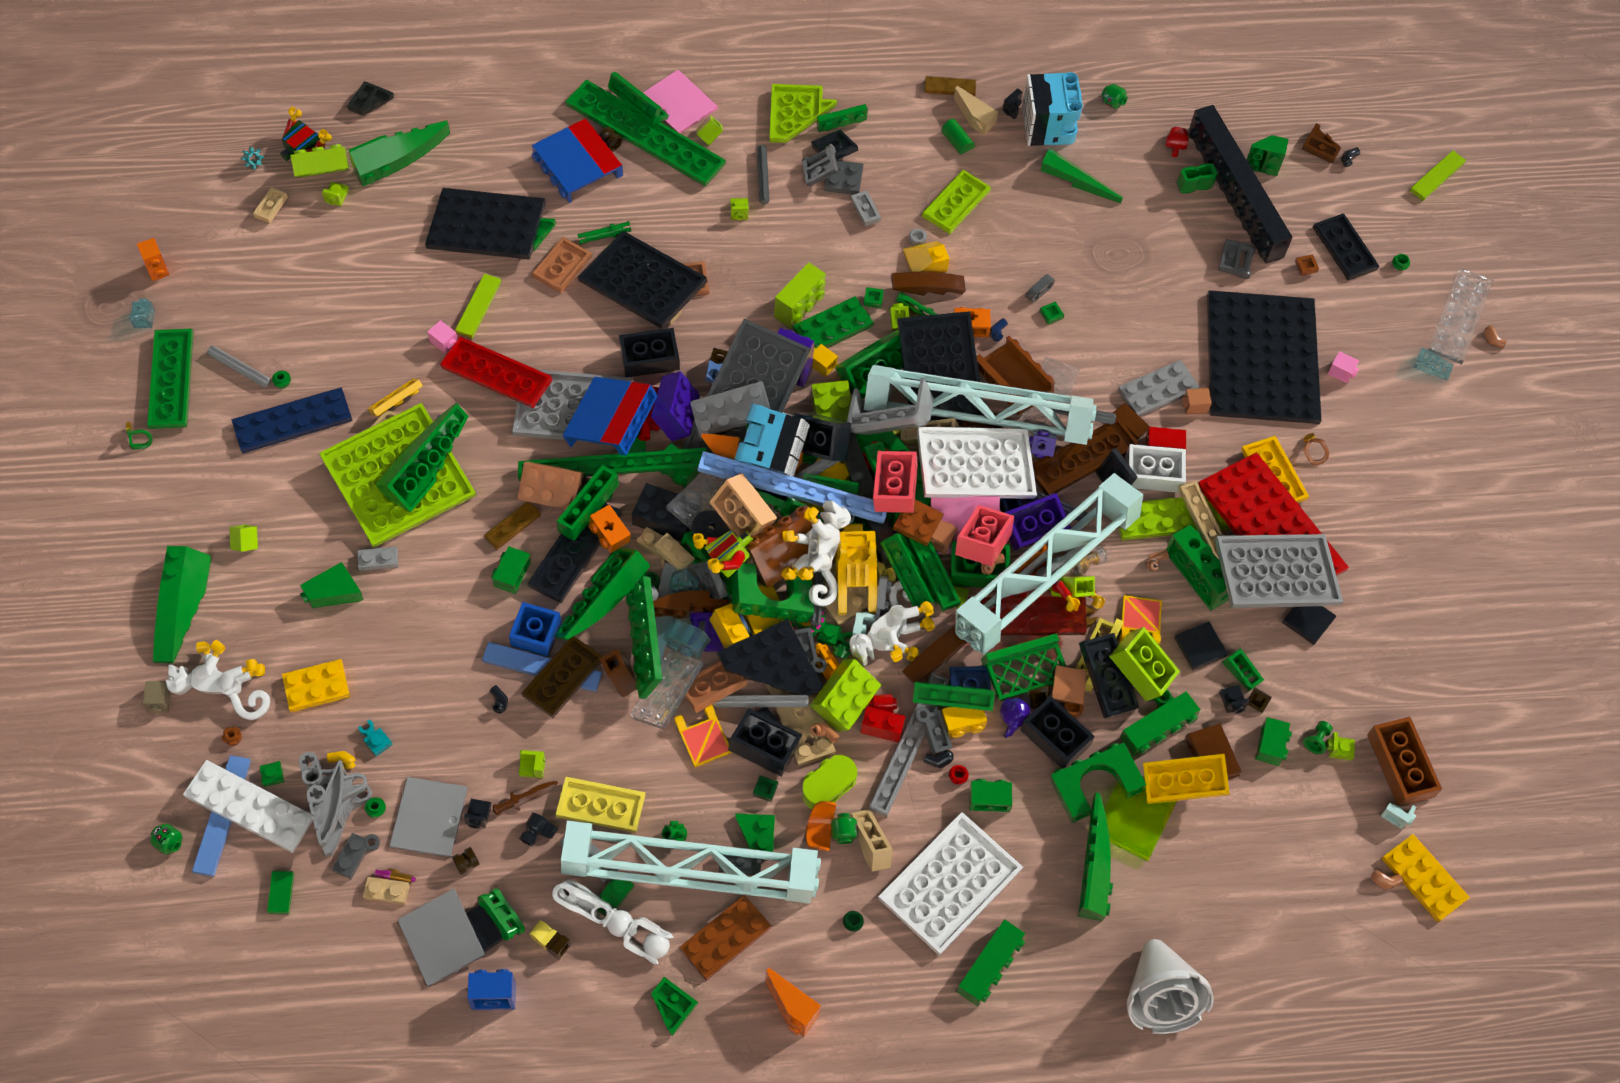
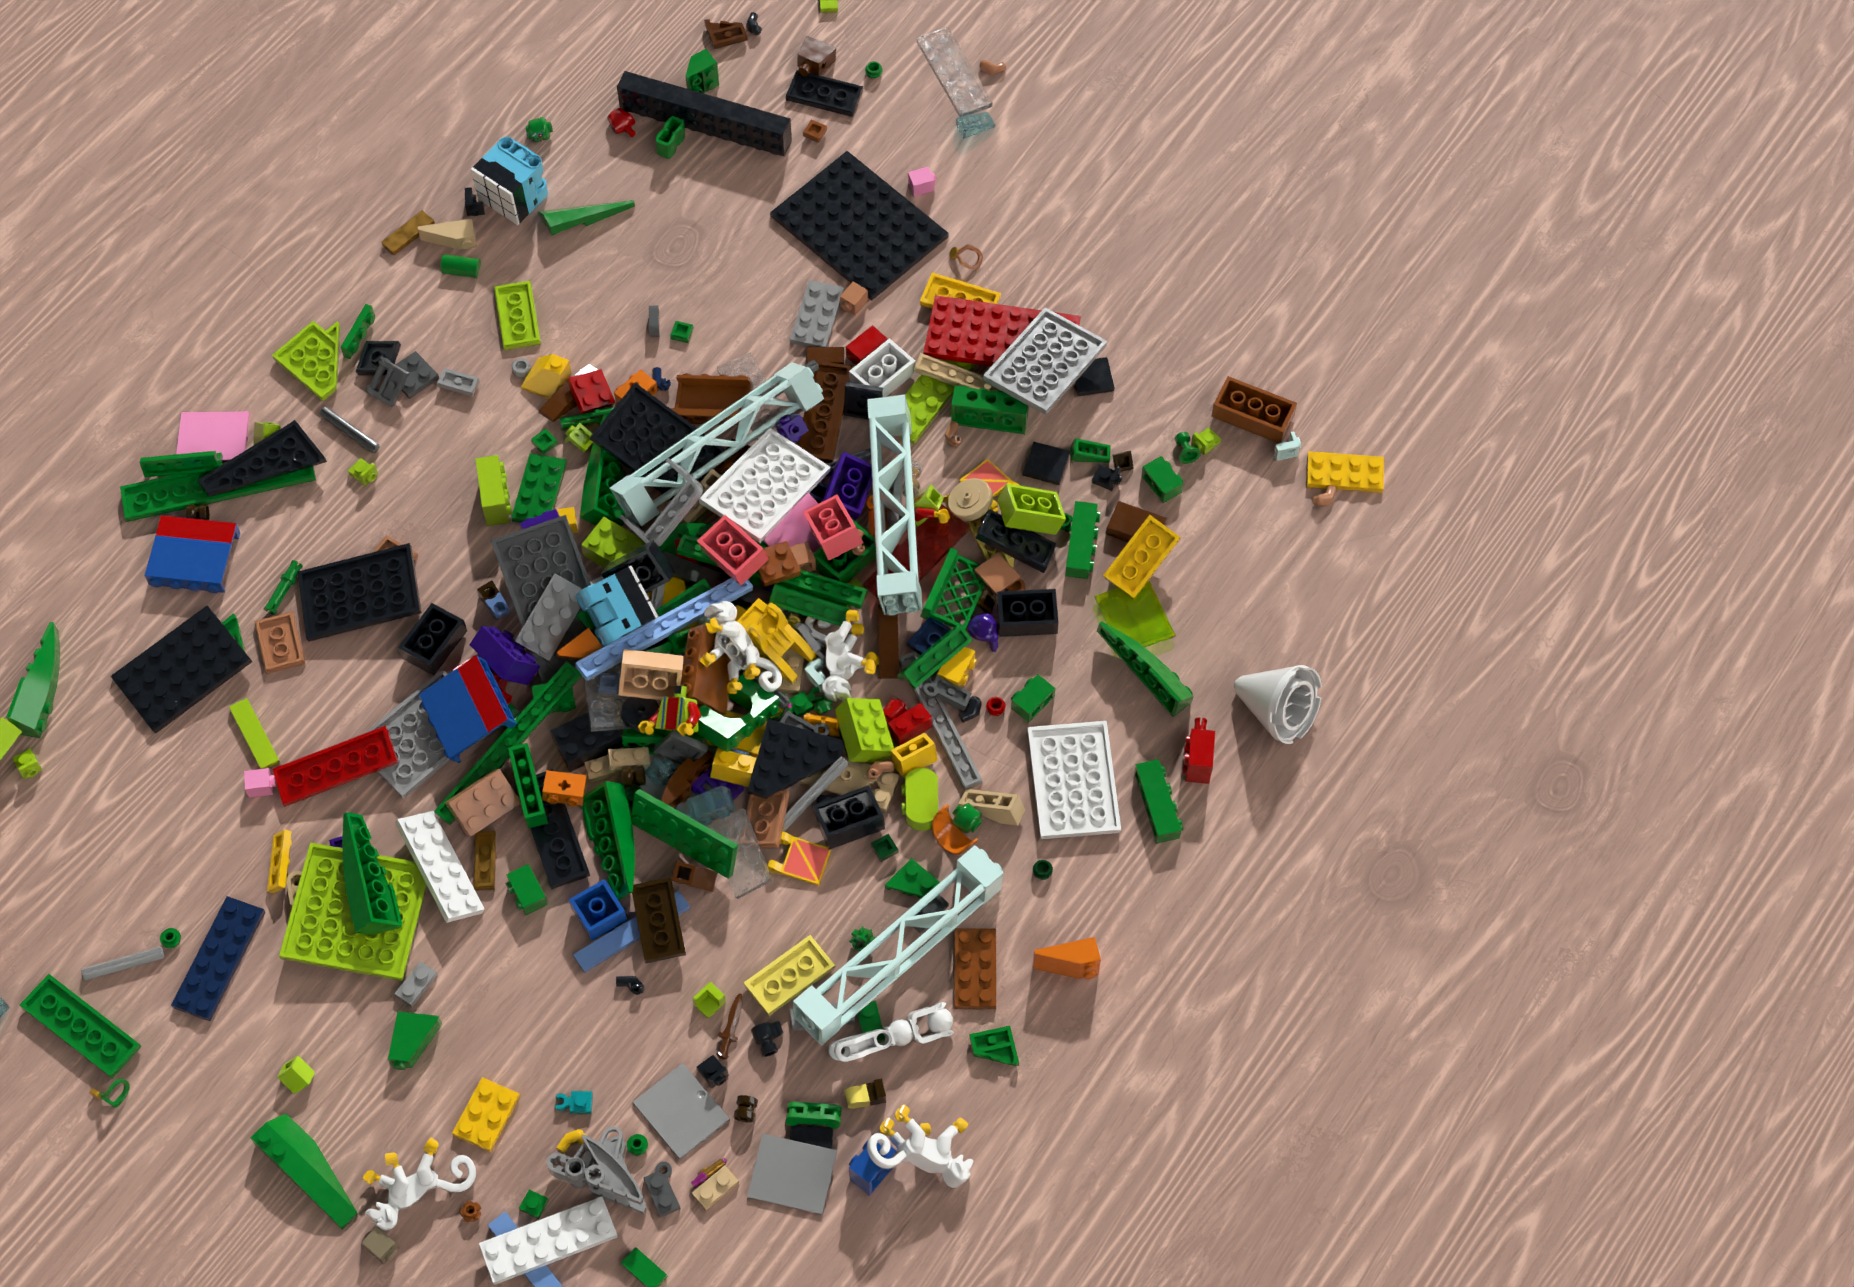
camera: 45 degrees left, 0 degrees up
(478, 499) = (439, 866): none -> white plate
(530, 1020) = (923, 1152): none -> white animal
(662, 567) = (634, 776): none -> dark brown wheel
(695, 146) = (272, 457): none -> black wing
(711, 487) = (608, 683): none -> sand blue tile
(859, 747) = (914, 754): none -> yellow brick
(941, 292) = (591, 391): none -> red plate
(1061, 961) = (1199, 753): none -> red brick
(1109, 614) = (970, 499): none -> tan wheel
(1114, 760) = (1085, 592): green arch -> none
(1231, 257) = (758, 174): dark grey plate -> none
(1367, 215) = (815, 56): none -> reddish brown torso

